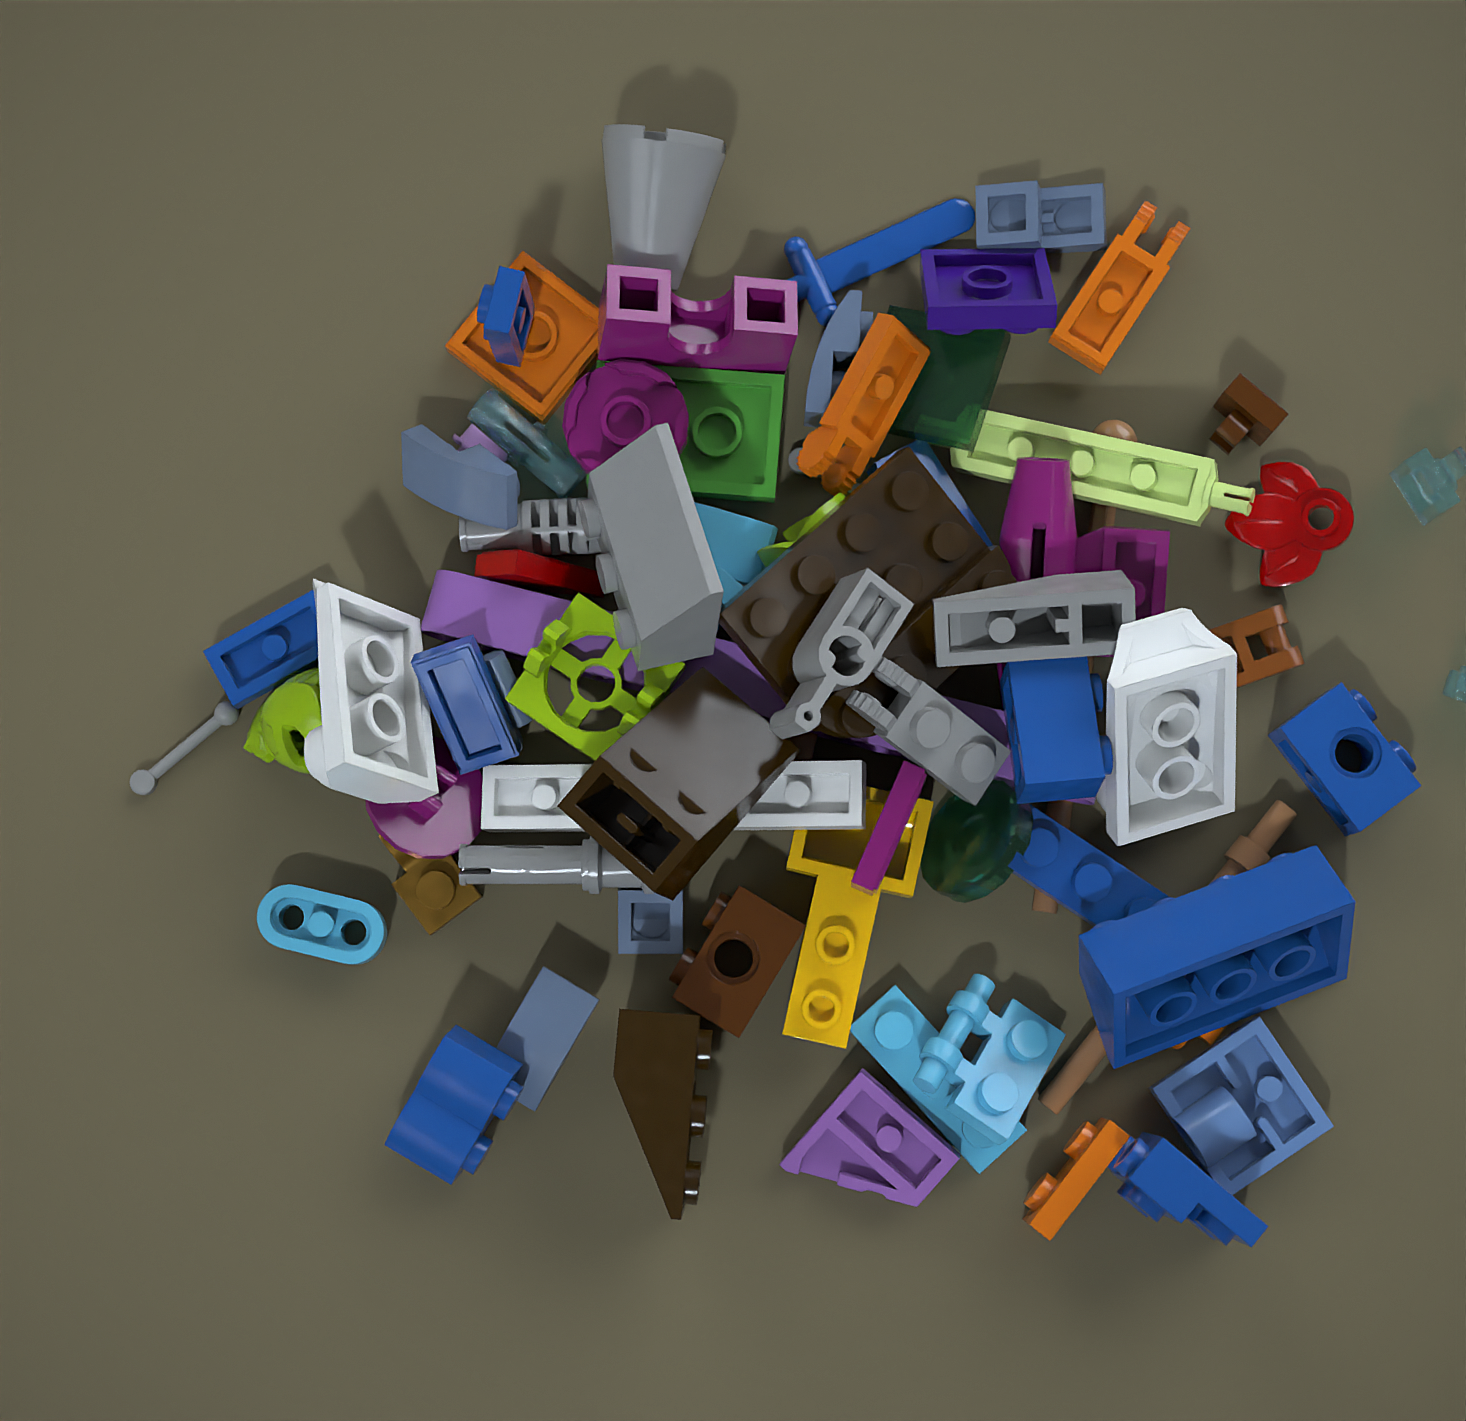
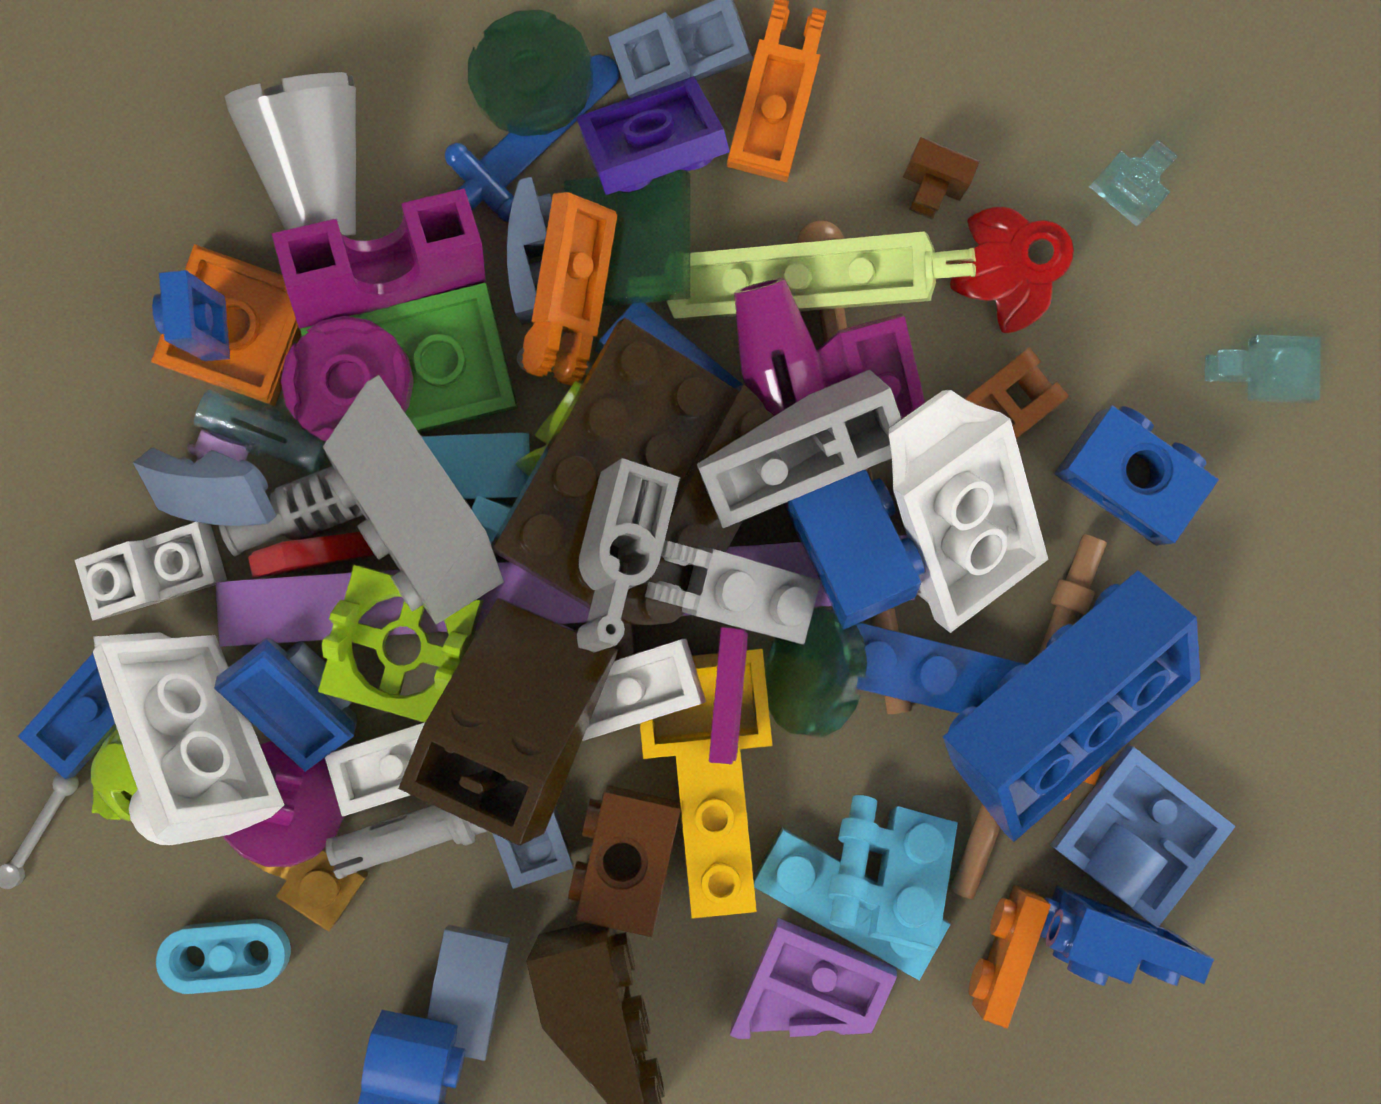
camera: 20 degrees left, 5 degrees up
(377, 540) = (150, 570): none -> white slope
(891, 195) = (530, 73): none -> clear green tile

